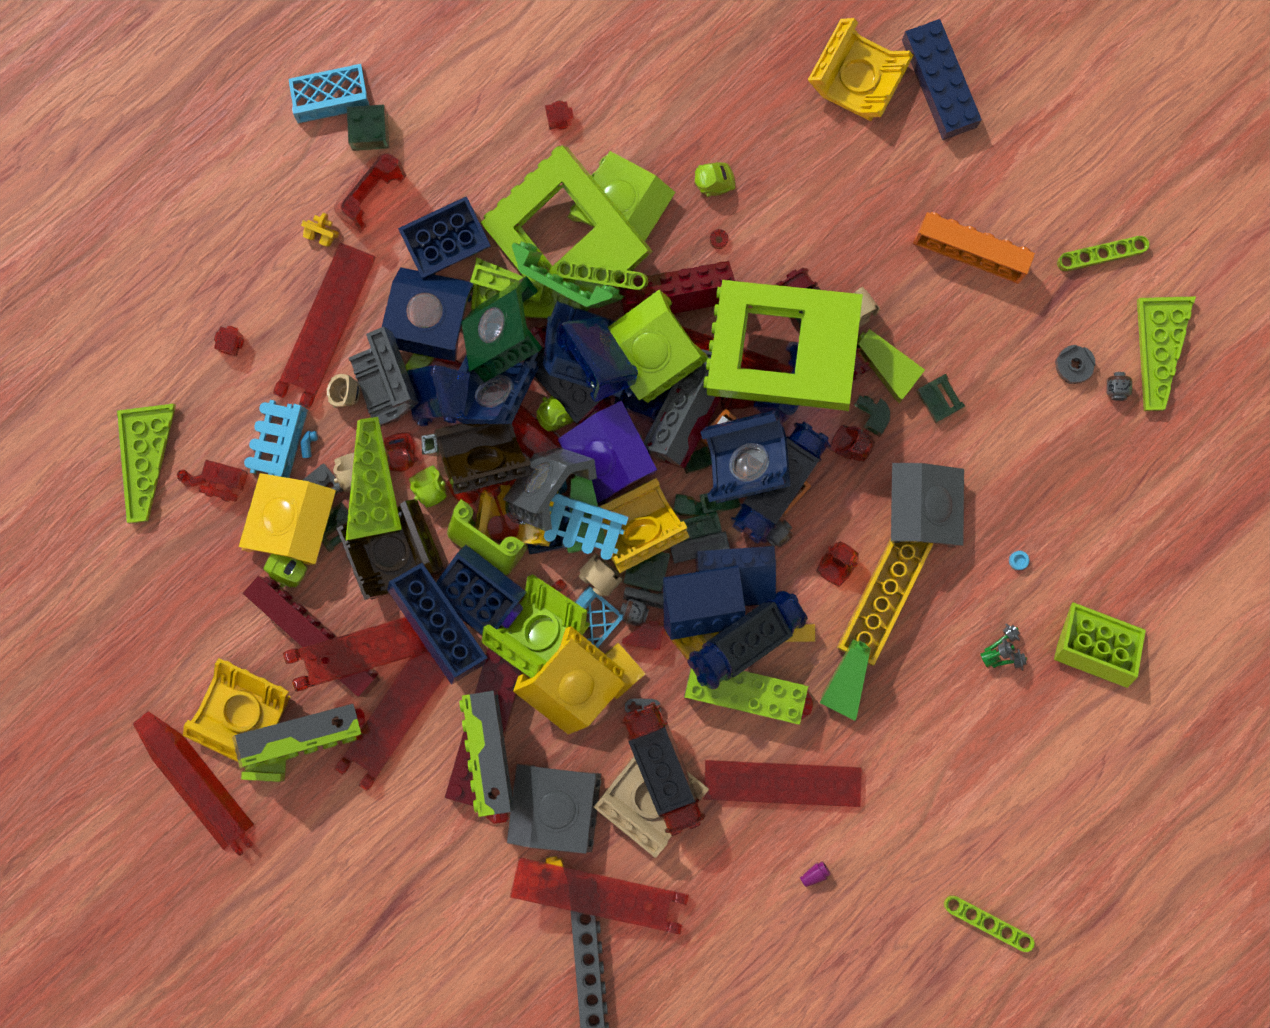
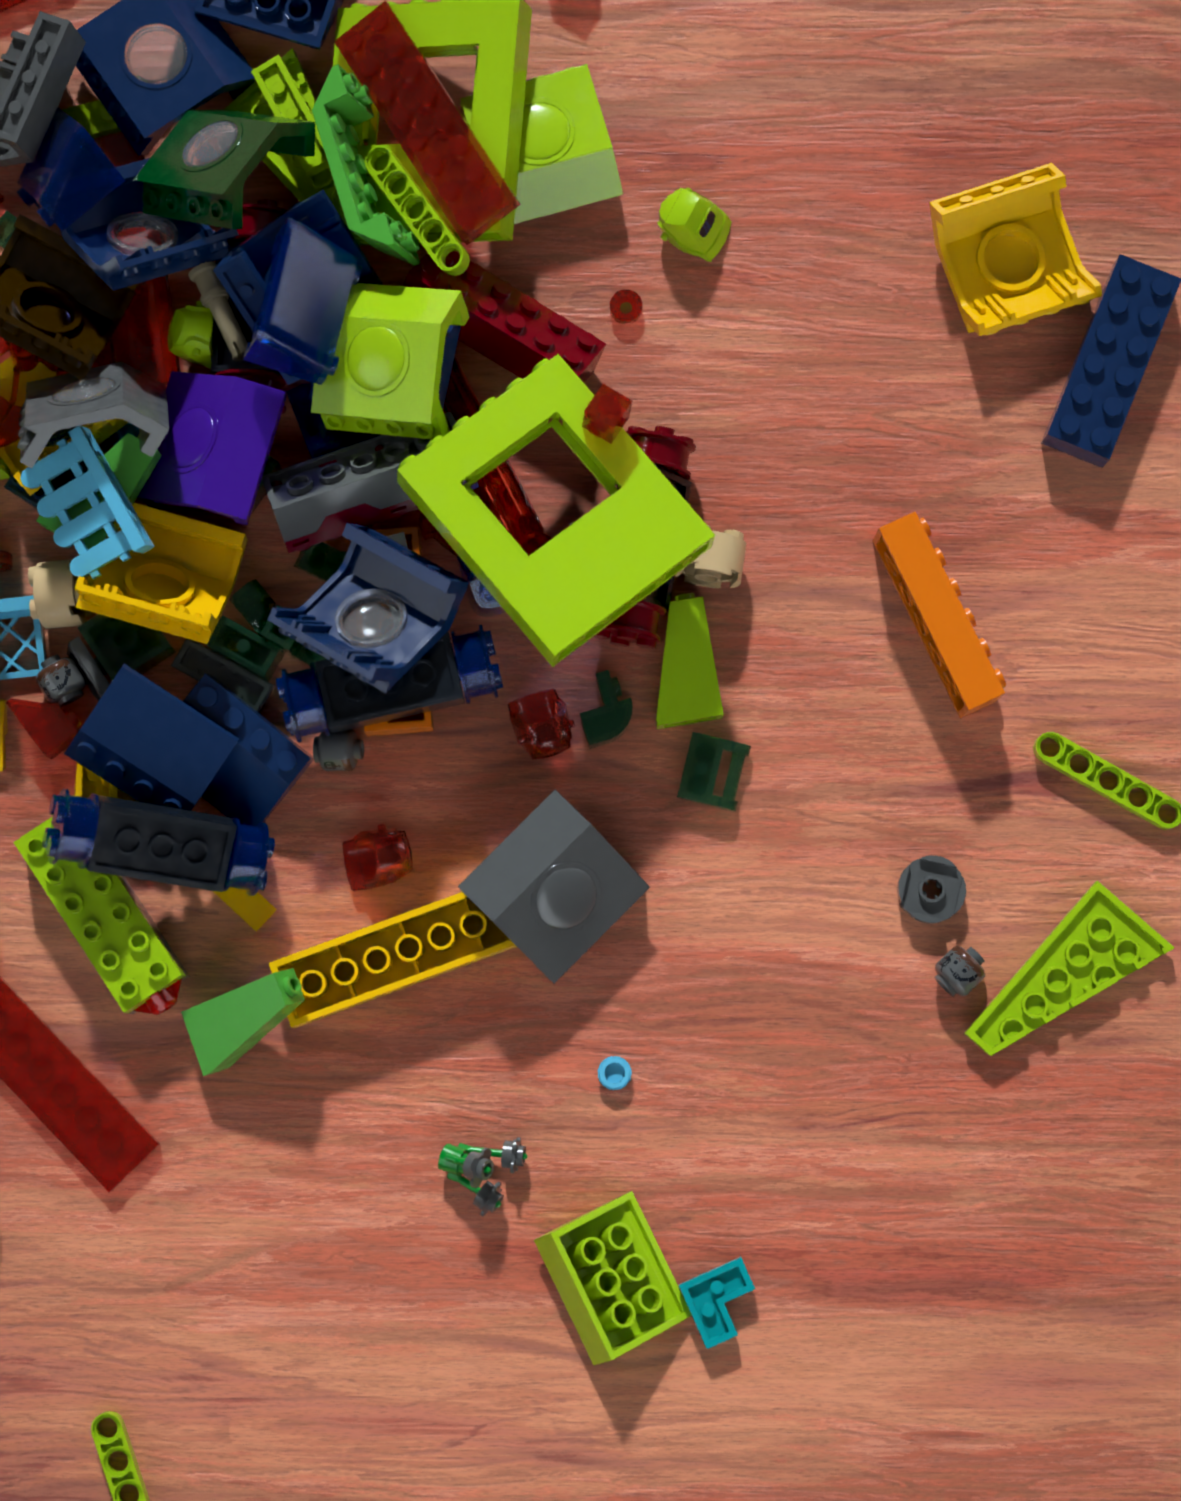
camera: 40 degrees right, 0 degrees up
(549, 389) = (216, 299): none -> dark tan pin
(570, 234) = (427, 123): none -> clear red plate
(770, 284) = (607, 413): none -> clear red brick
(1145, 614) = (707, 1296): none -> teal plate

